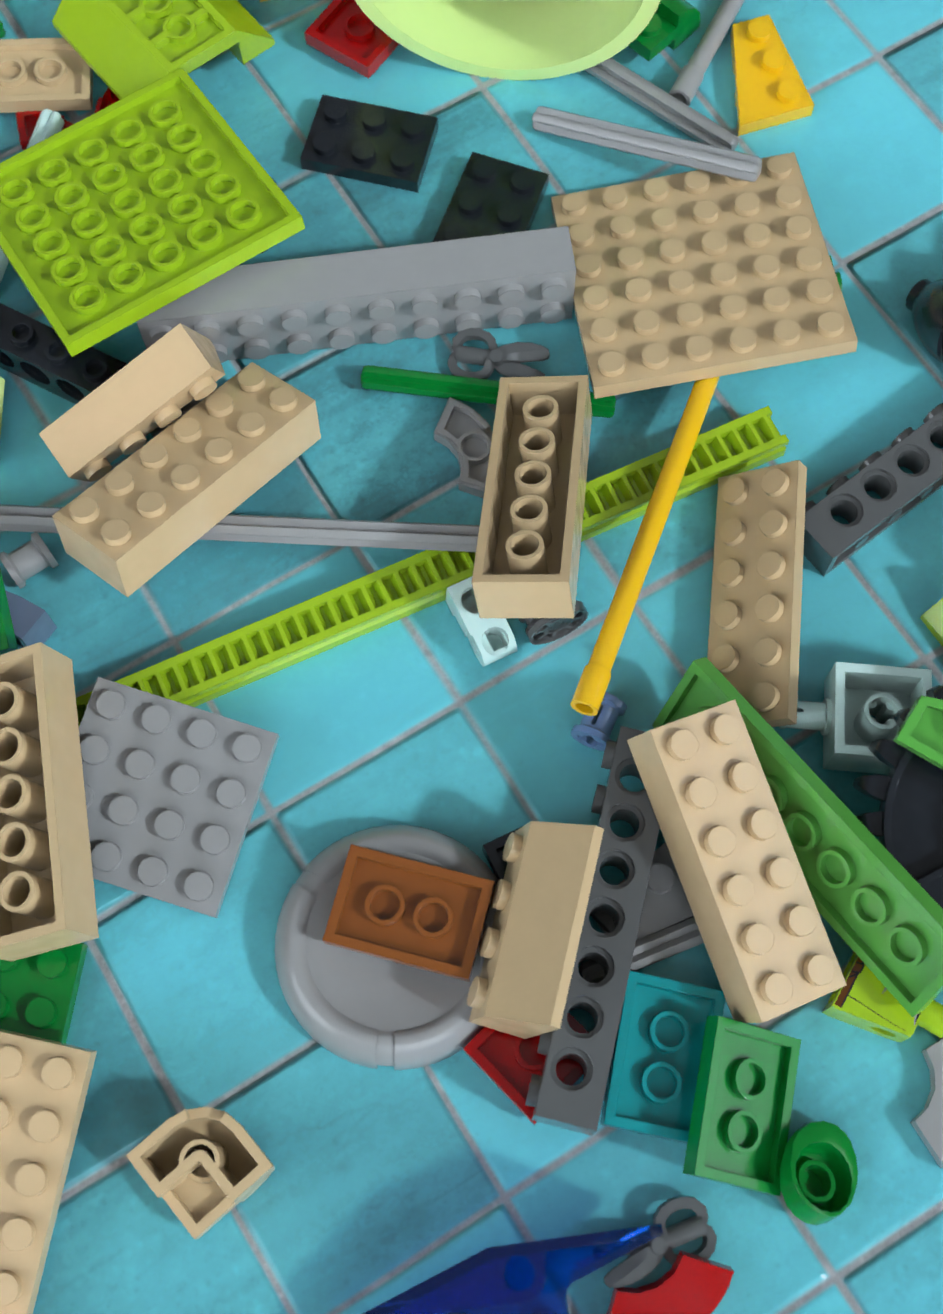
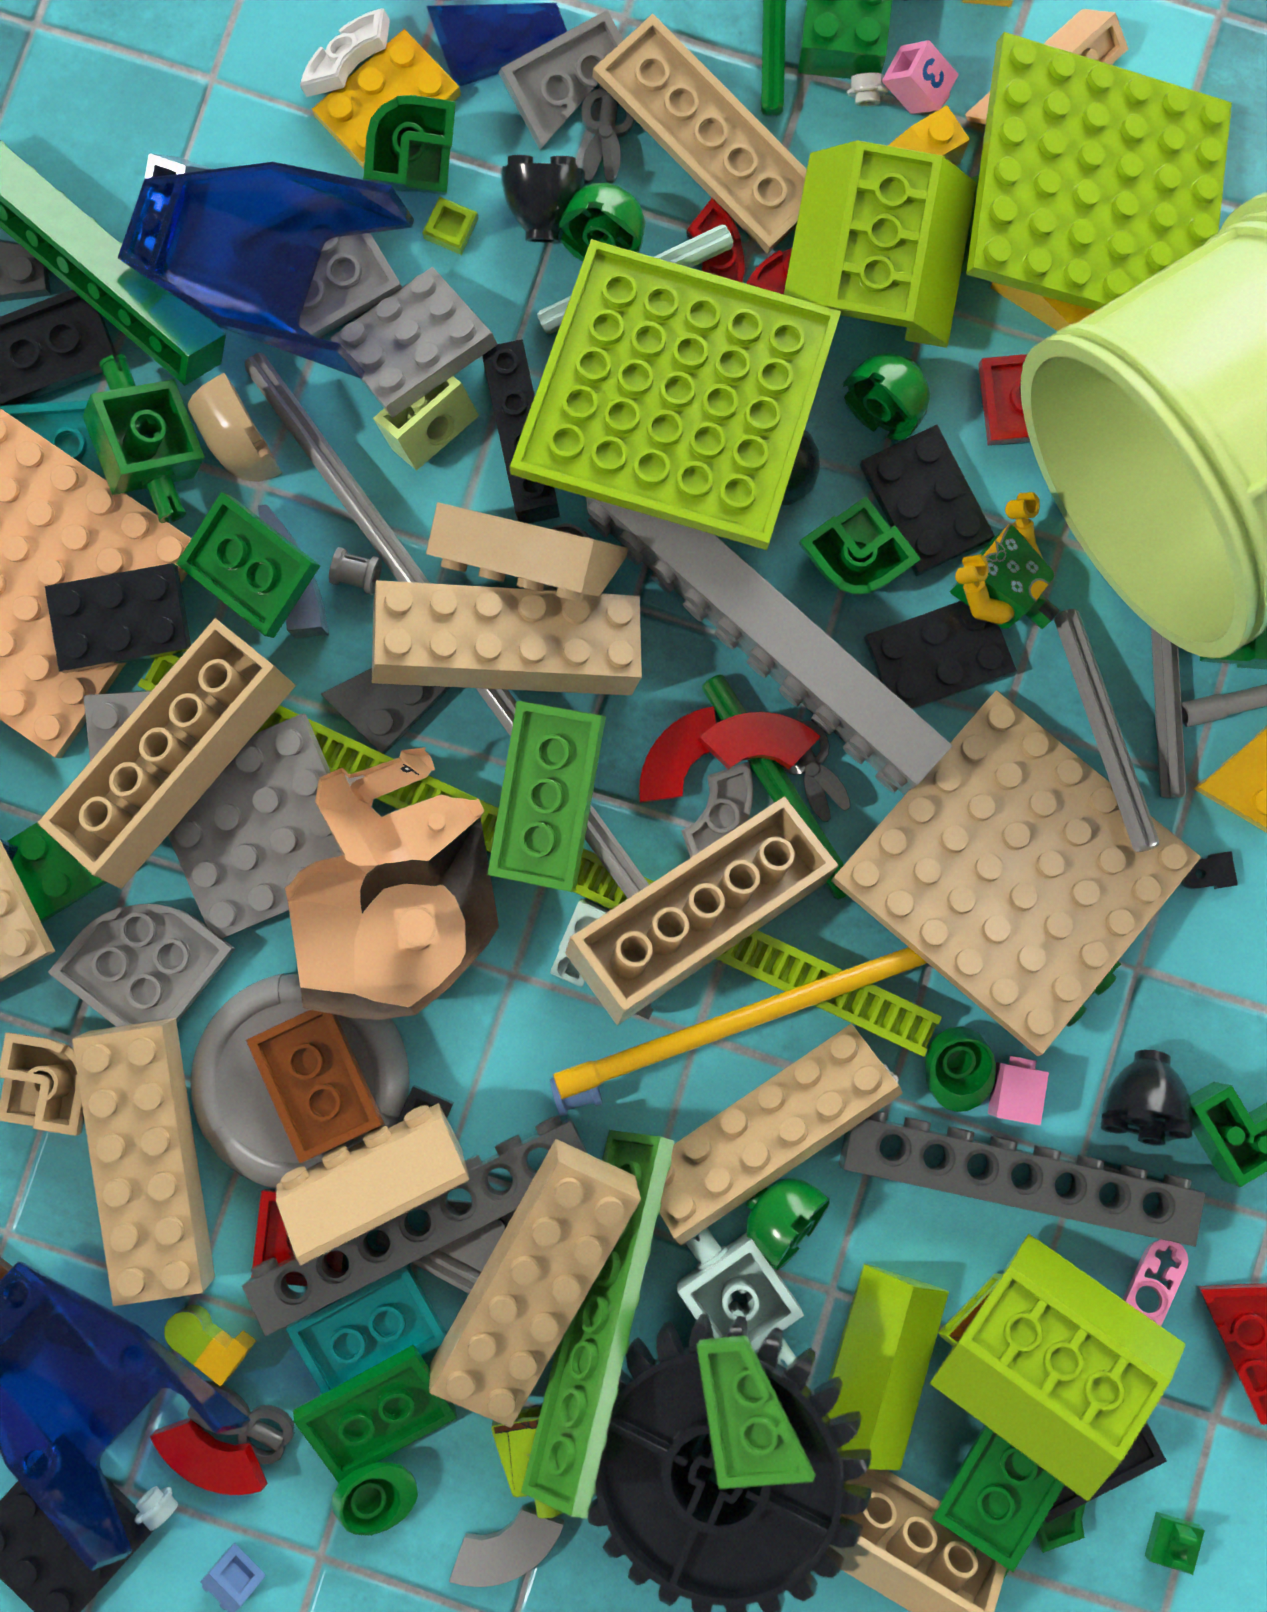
camera: 50 degrees right, 15 degrees up
(151, 621) = (382, 710): none -> dark grey wing
(180, 998) = (141, 963): none -> light grey plate
(271, 102) = (888, 394): none -> green cylinder
(301, 755) = (400, 906): none -> light nougat piece
(341, 539) = (546, 795): none -> bright green plate
(349, 1127) = (144, 1161): none -> tan brick
(364, 202) = (859, 550): none -> green brick
(395, 444) = (674, 755): none -> red tile
(437, 368) = (761, 736): none -> red tile
(474, 124) = (1009, 572): none -> torso
(559, 1217) = (206, 1344): none -> leg
(813, 163) = (1216, 871): none -> black piece
(820, 427) = (960, 1069): none -> green hat
(834, 630) = (783, 1218): none -> green cylinder
(871, 400) = (1018, 1091): none -> bright pink brick

